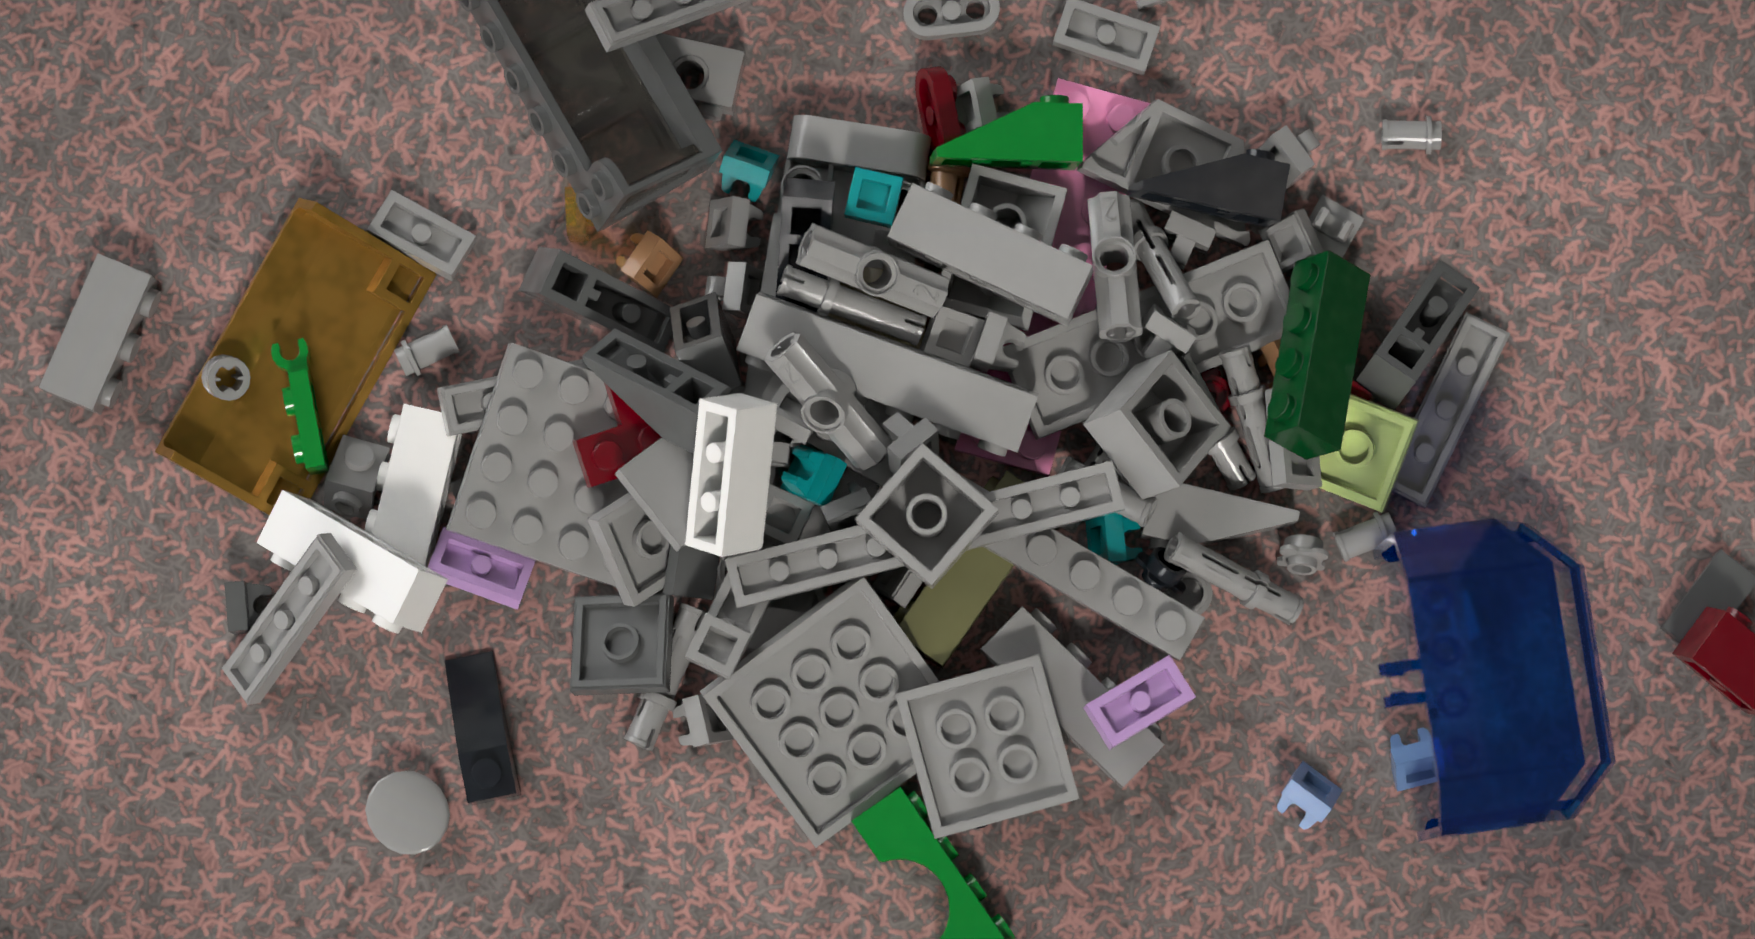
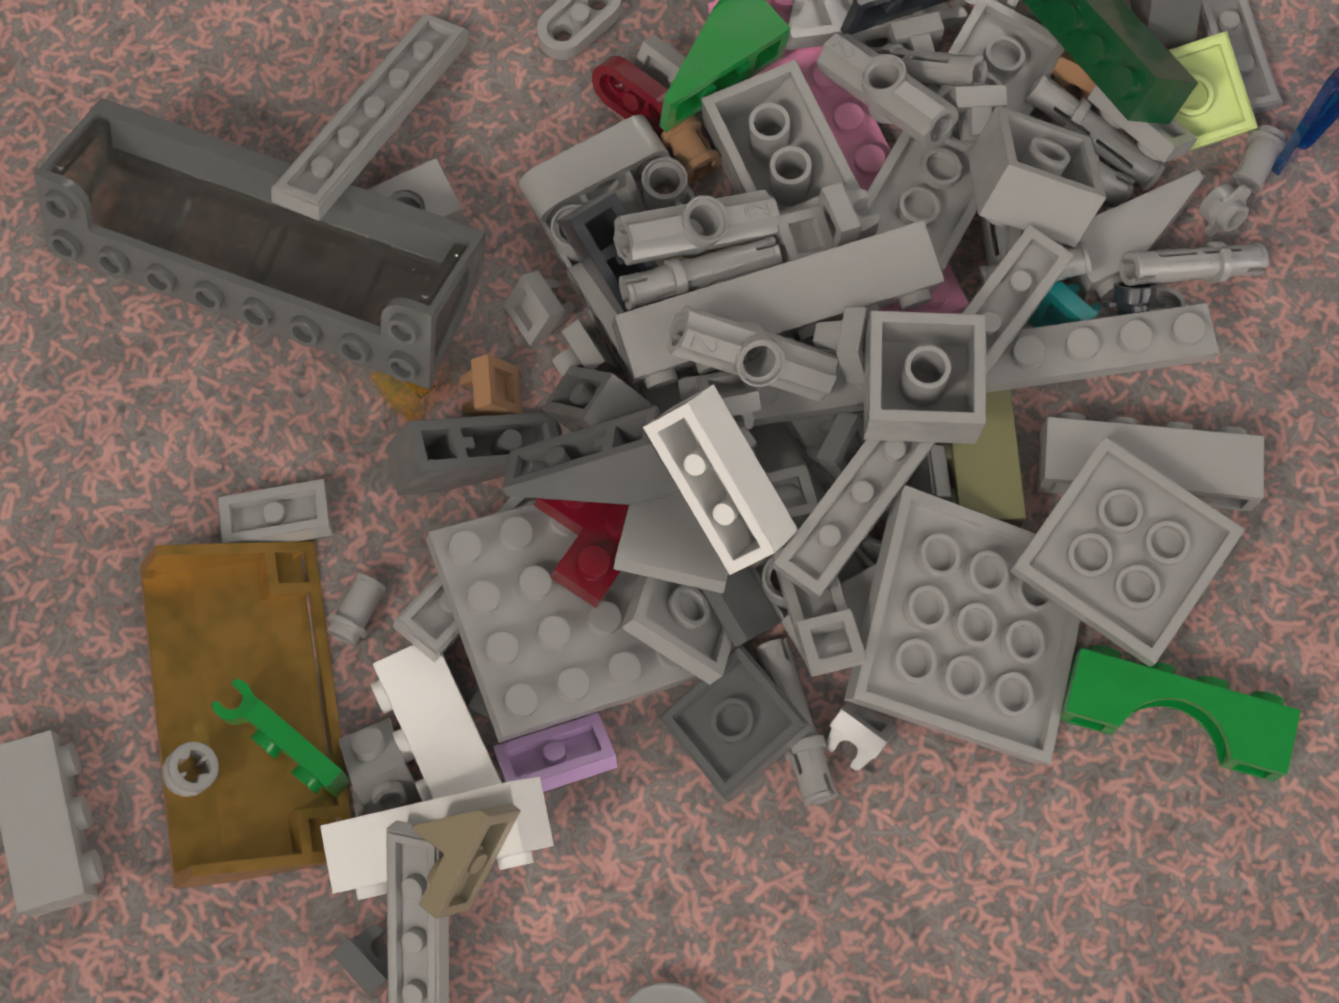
camera: 40 degrees left, 10 degrees down
(359, 592) = (469, 849): none -> dark tan slope
(481, 729) = (672, 899): black slope -> none
(749, 165) = (514, 250): teal tile -> none
(813, 475) = (785, 439): teal tile -> none
(873, 197) = (644, 178): teal tile -> none
(990, 253) = (784, 144): light grey brick -> none
(1139, 702) = (1217, 413): lavender plate -> none

